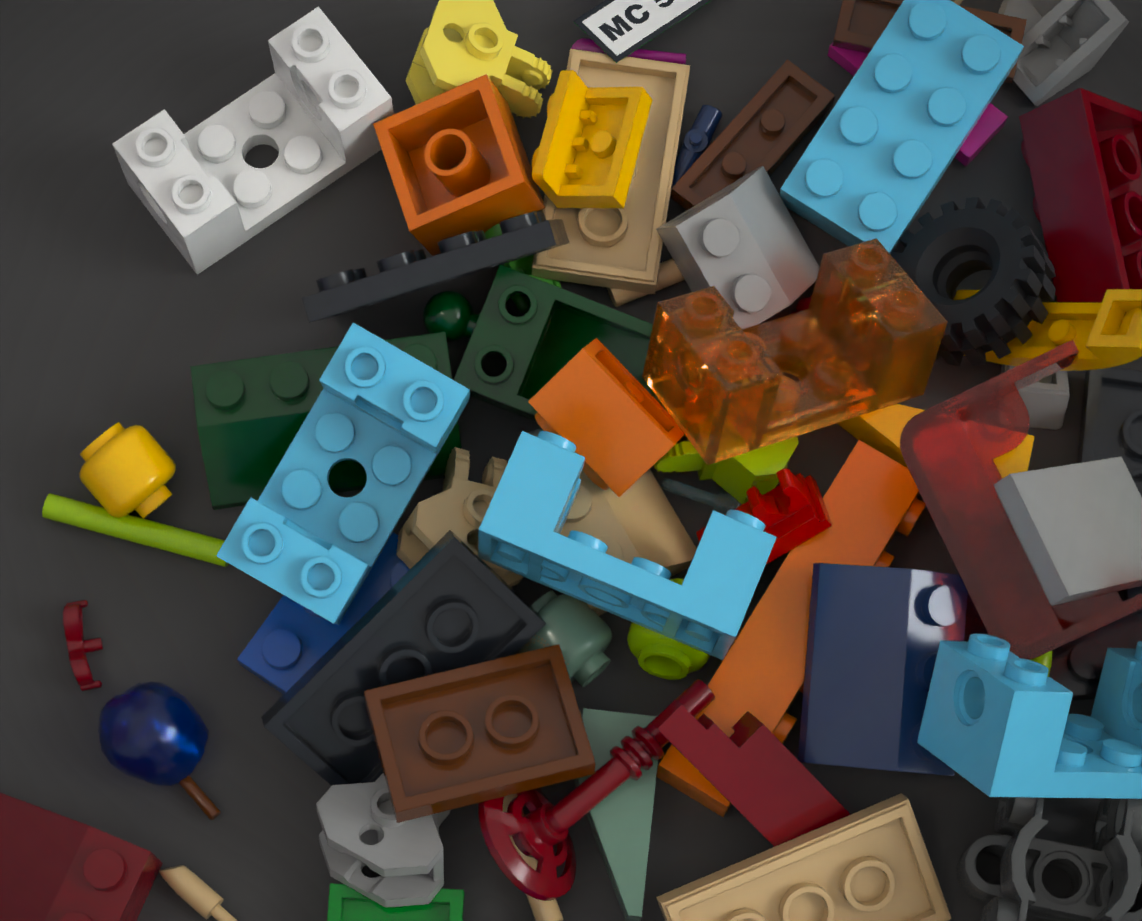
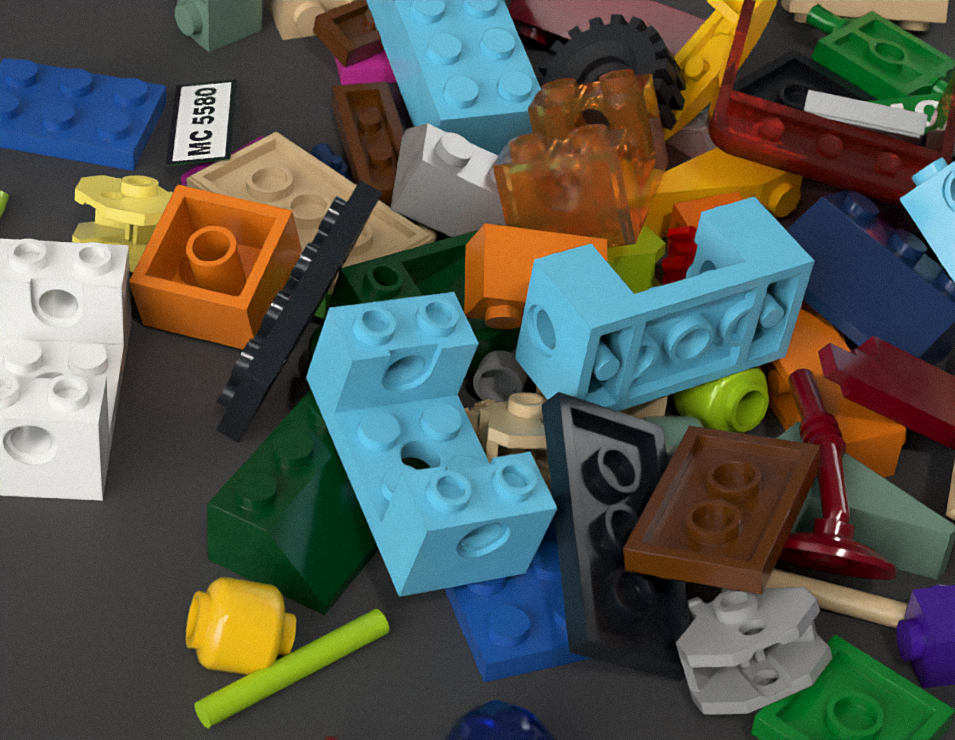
camera: 55 degrees left, 30 degrees down
(590, 143) = (289, 178): yellow bracket -> none

